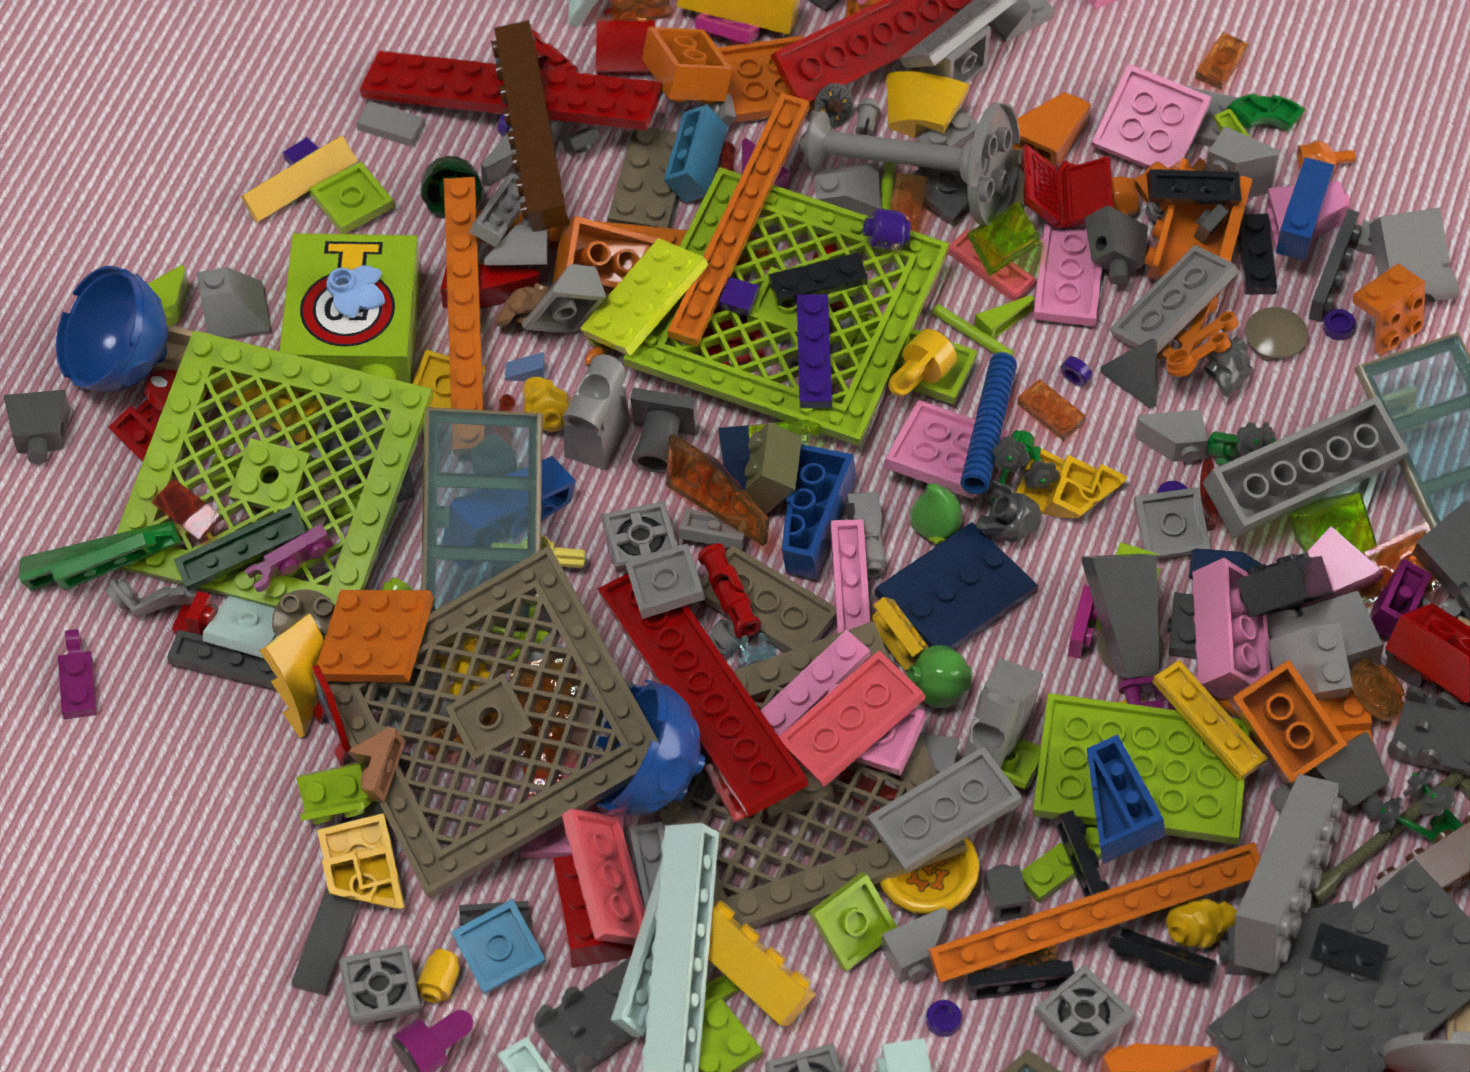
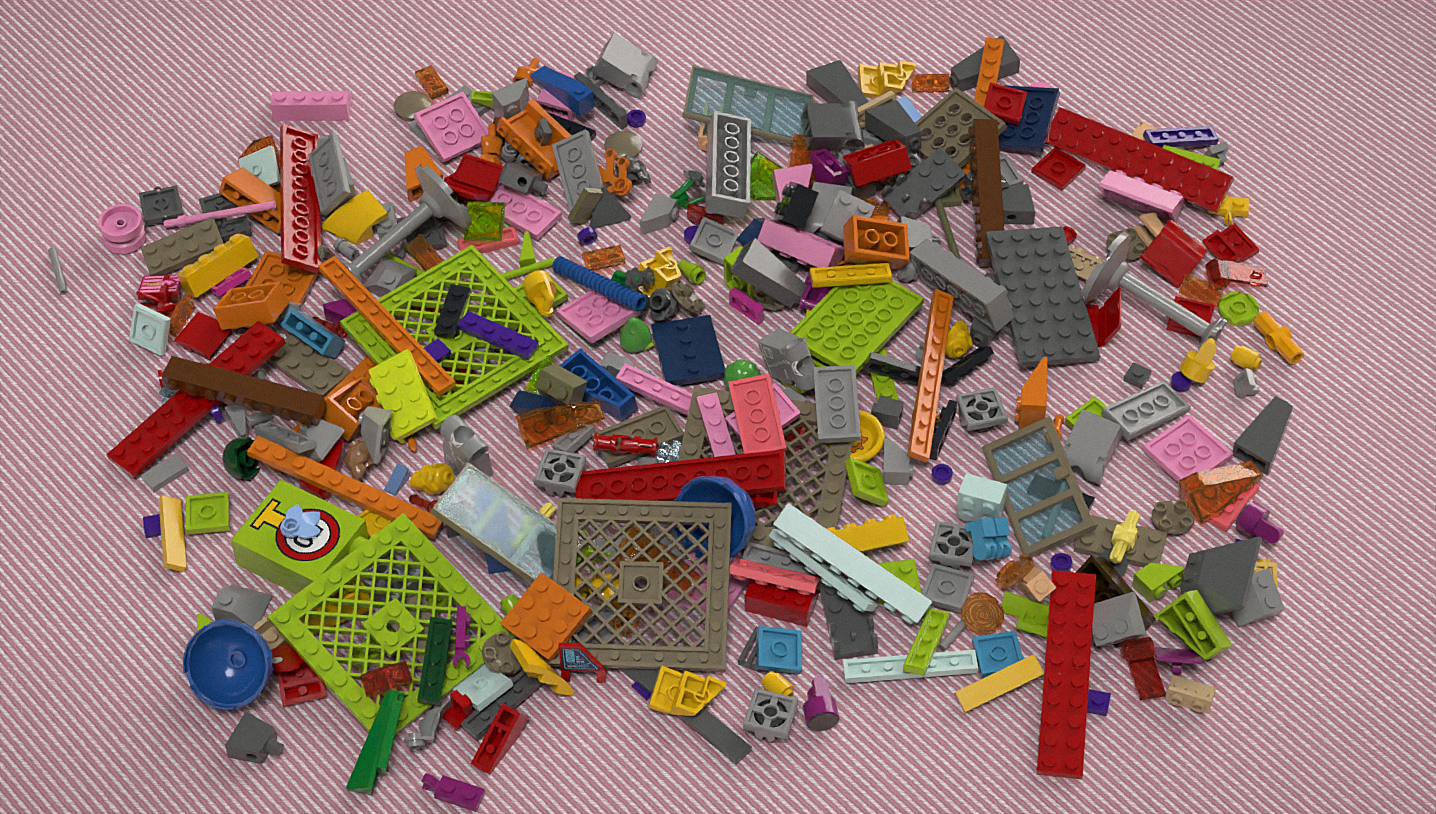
camera: 60 degrees left, 5 degrees down
(184, 684) = (499, 738): none -> red slope
(332, 793) = (630, 686): lime bracket -> none
(381, 756) = (629, 646): nougat slope -> none
(660, 417) = (488, 425): dark grey plant -> none
(665, 581) = (601, 468): light grey plate -> none
(887, 229) = (447, 263): dark purple head -> none
(898, 632) = (703, 380): yellow bracket -> none
(1043, 540) = (685, 296): none -> dark tan dish
(1099, 529) = (693, 272): none -> lime cone
(1116, 337) = (585, 205): none -> olive tile
(1122, 802) = (877, 329): blue wedge -> none
(1169, 59) = (411, 103): none -> dark tan dish
(1193, 187) = (523, 122): black plate -> none
(1272, 110) = (481, 78): green tile -> none
(1349, 951) = (1021, 281): black plate -> none
(1395, 303) = (647, 83): orange bracket -> none
(1435, 802) = (959, 212): dark grey plant -> none

